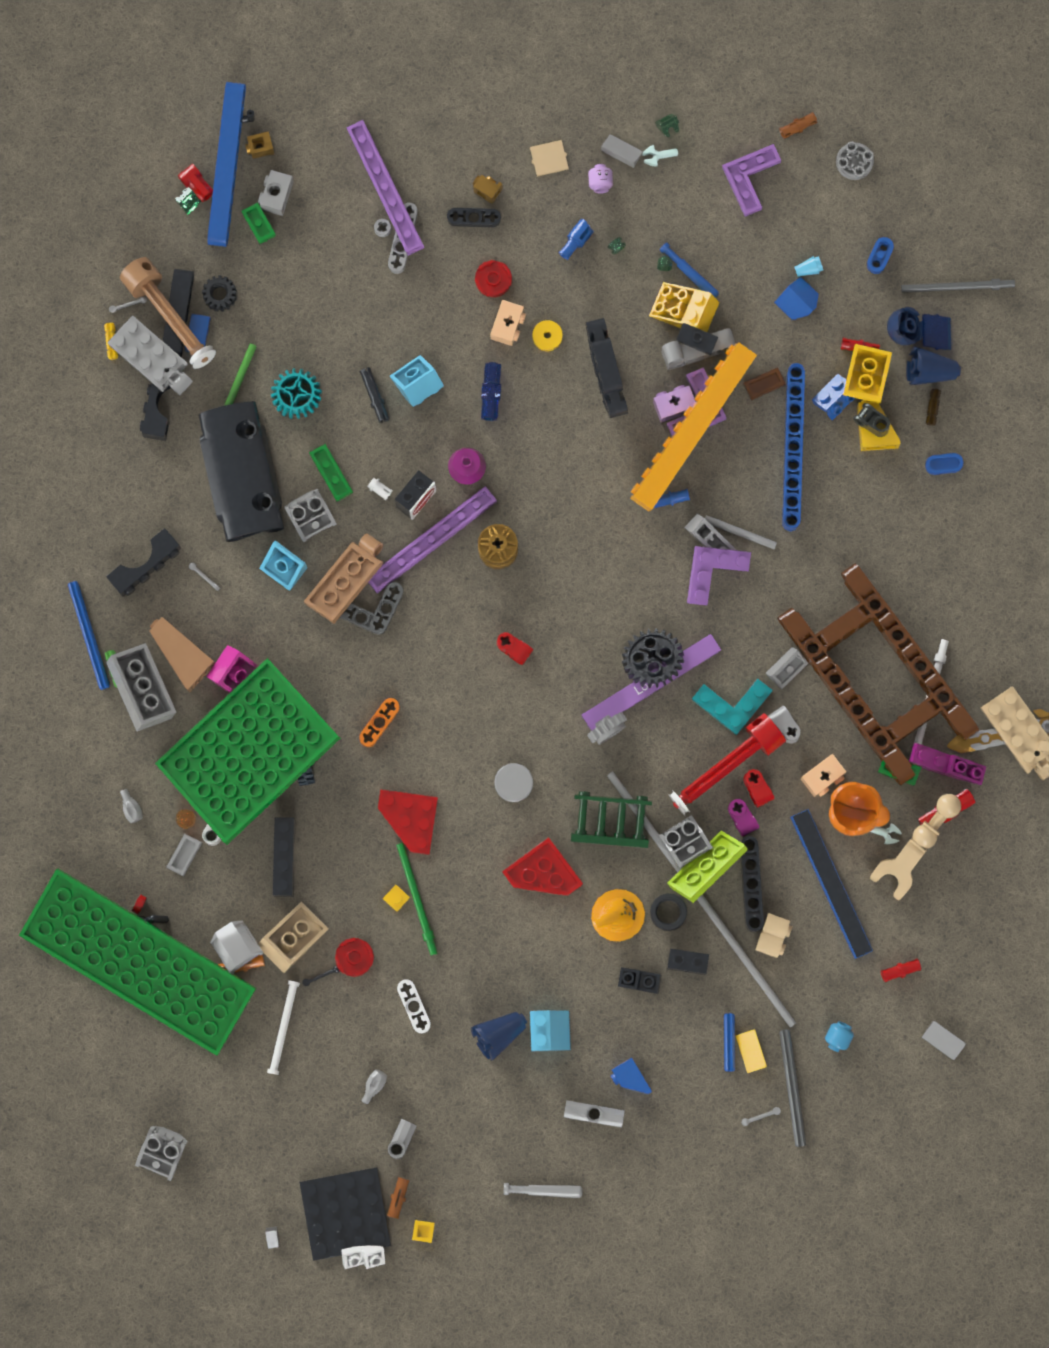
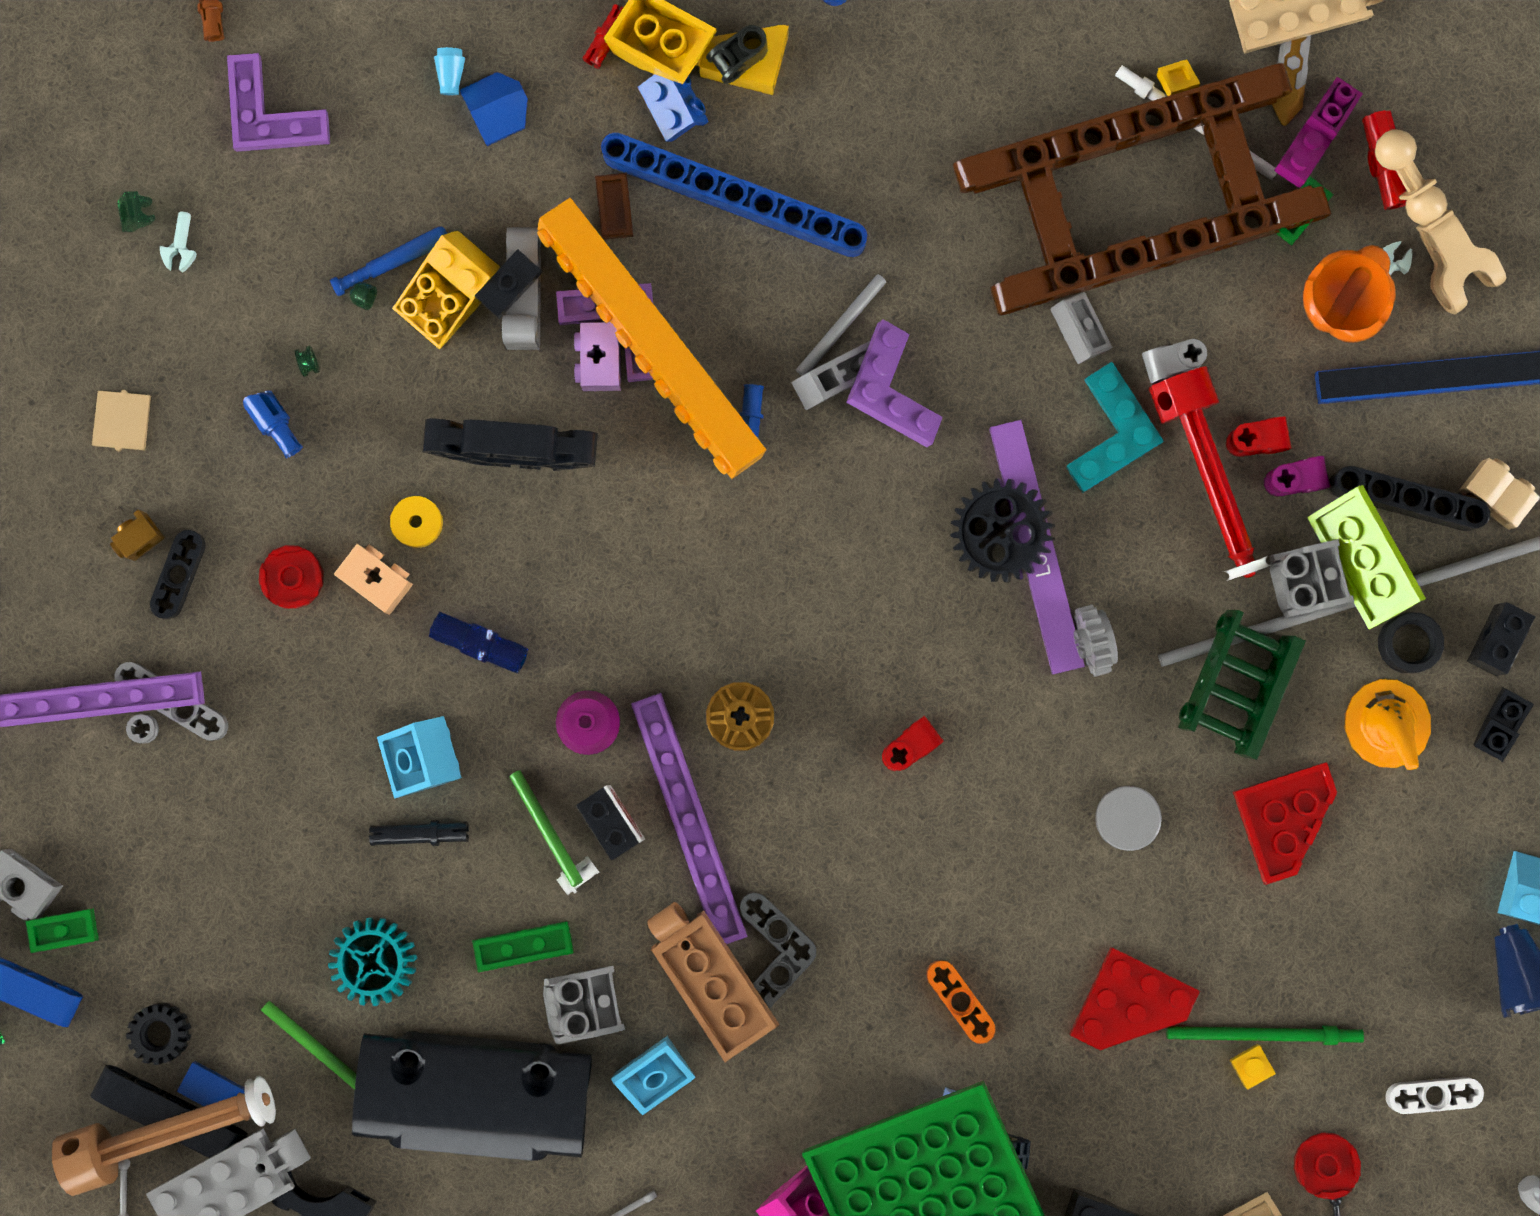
camera: 75 degrees left, 5 degrees up
(400, 462) = (546, 828): none -> bright green bar
(600, 178) = (186, 349): lavender head -> none
(621, 150) = (151, 301): light grey slope -> none
(828, 766) = (1269, 344): light nougat brick -> none
(951, 674) = (1177, 77): none -> yellow plate

